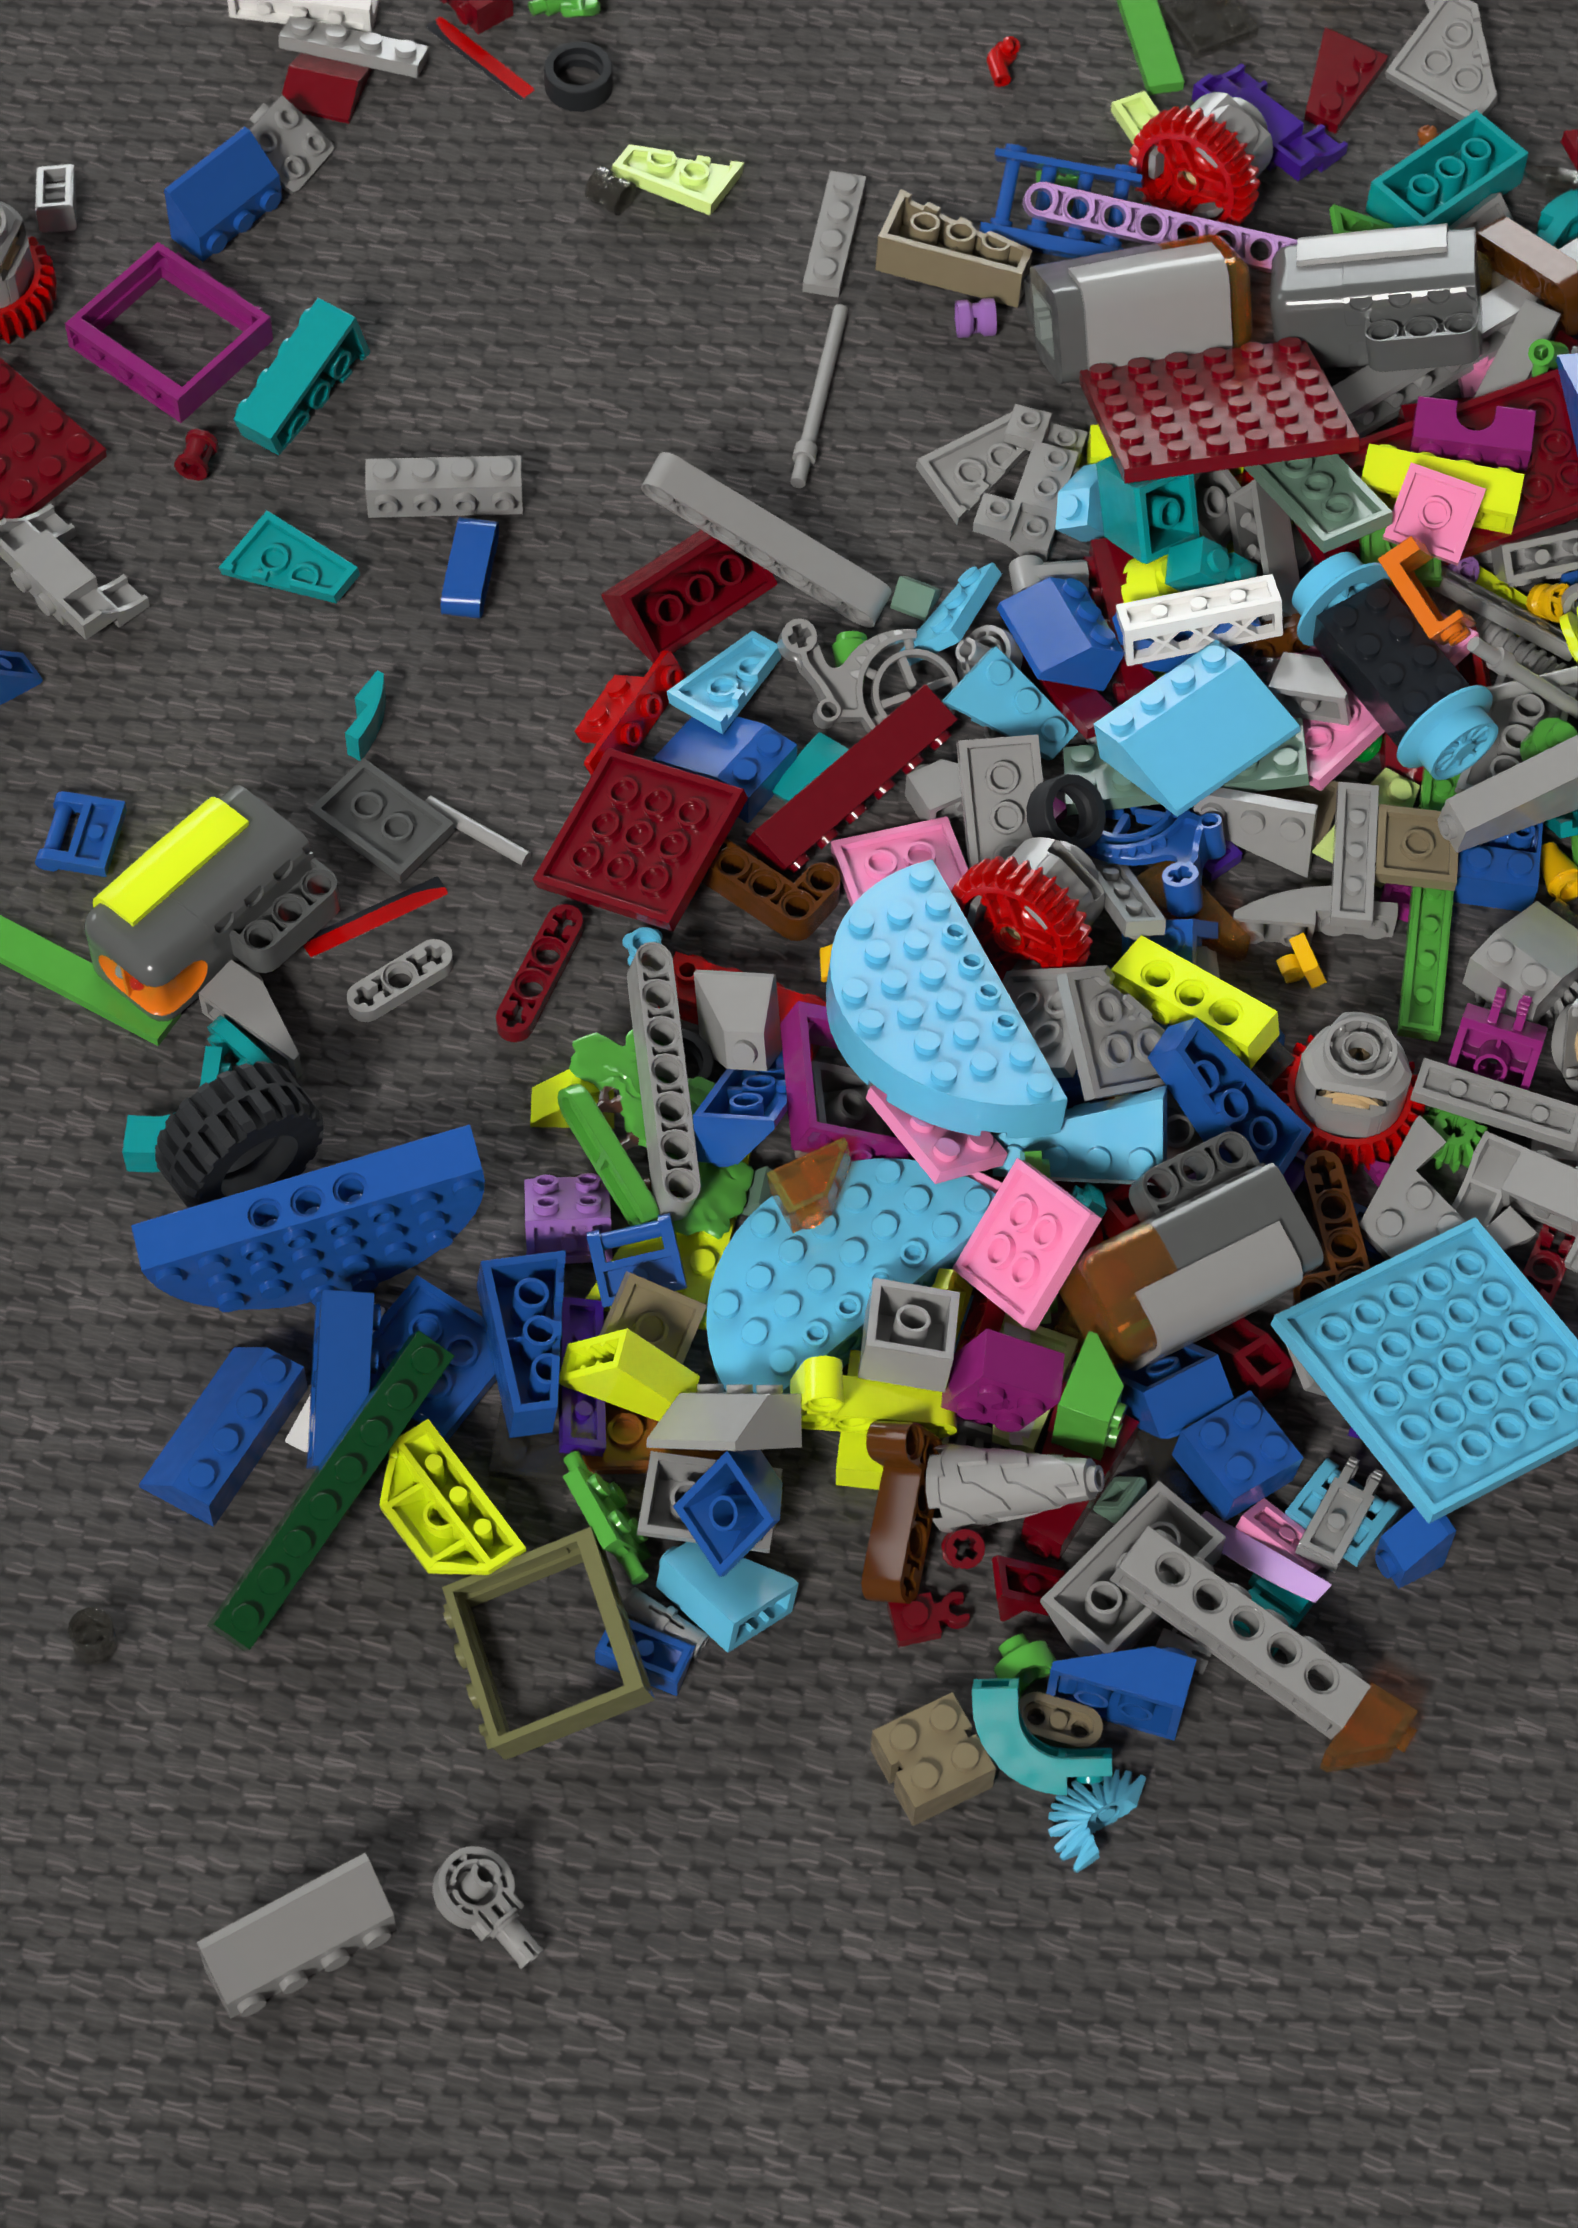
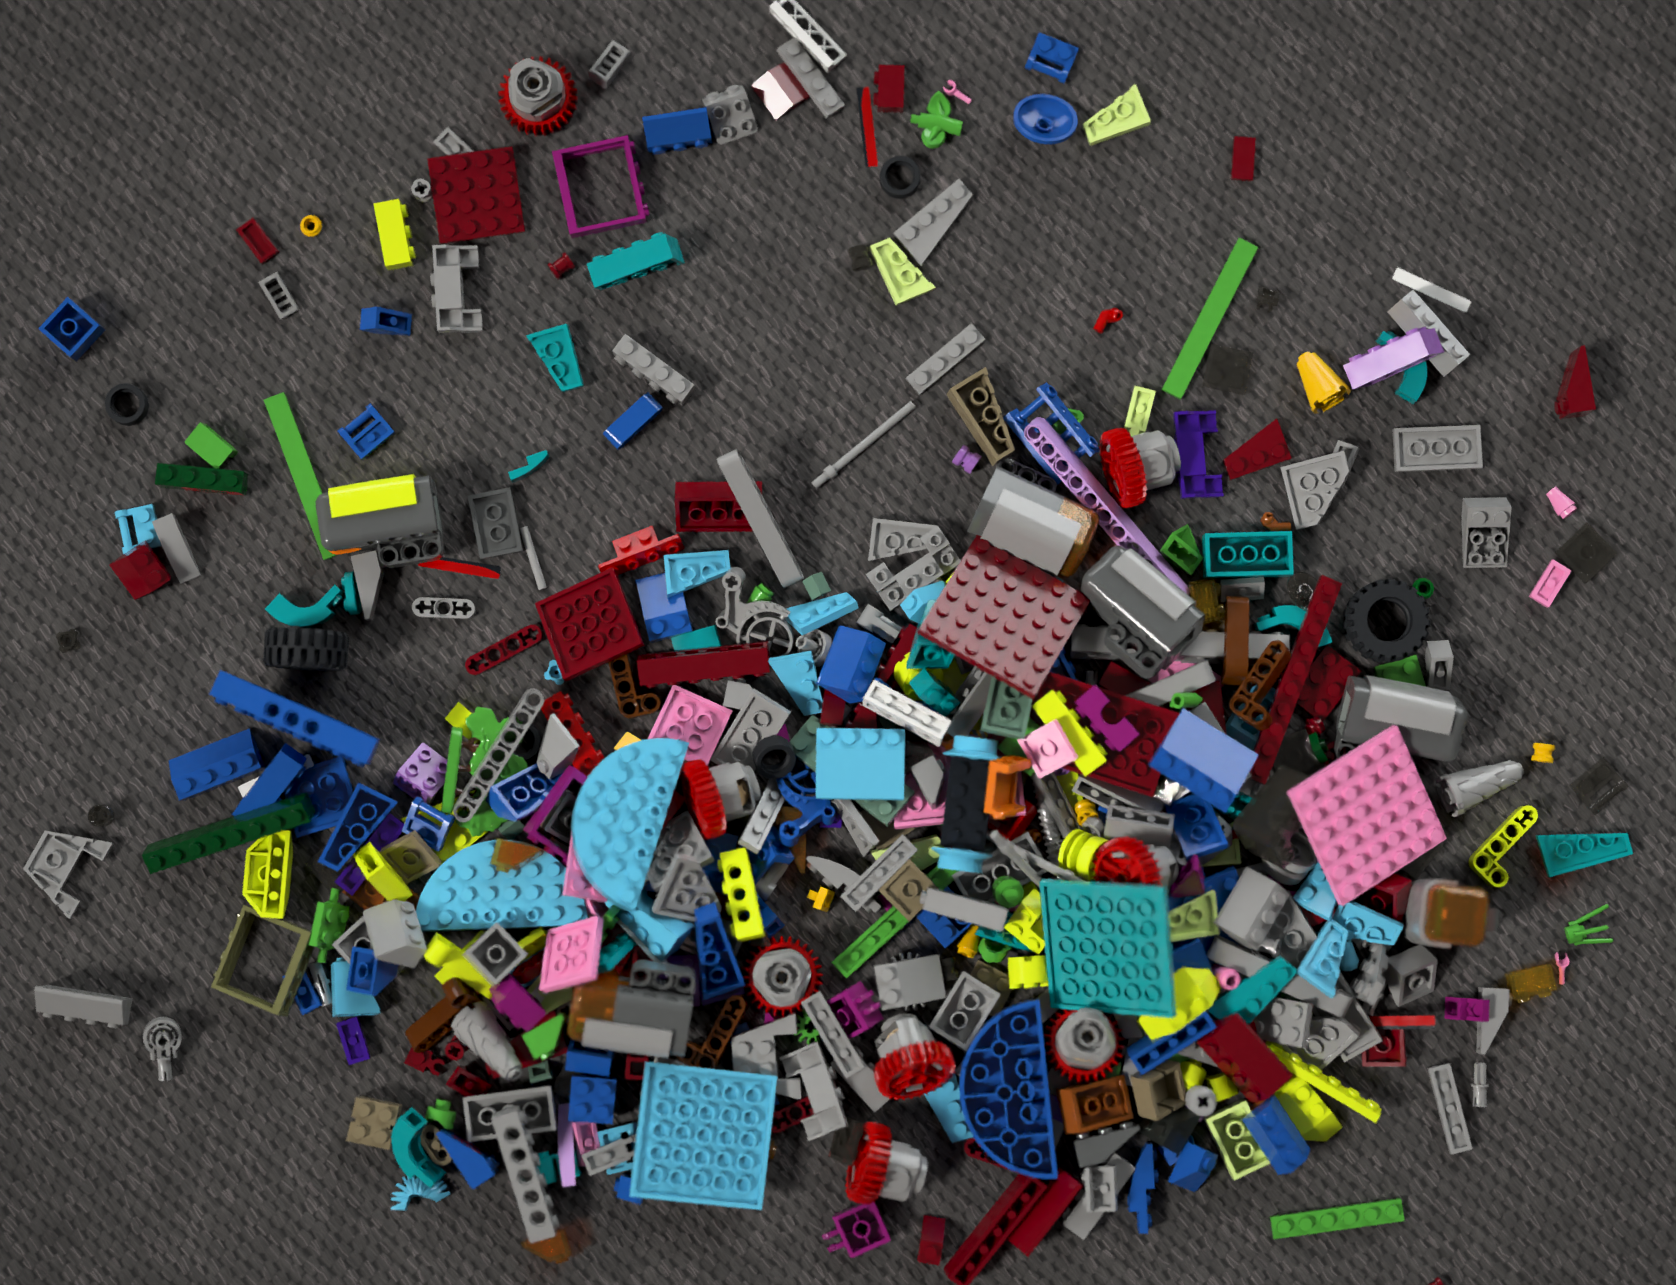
camera: 40 degrees right, 25 degrees up
(69, 1764) = (56, 859): none -> light grey wing
(668, 100) = (929, 225): none -> light grey wing
(790, 1668) = (353, 1040): none -> dark purple plate

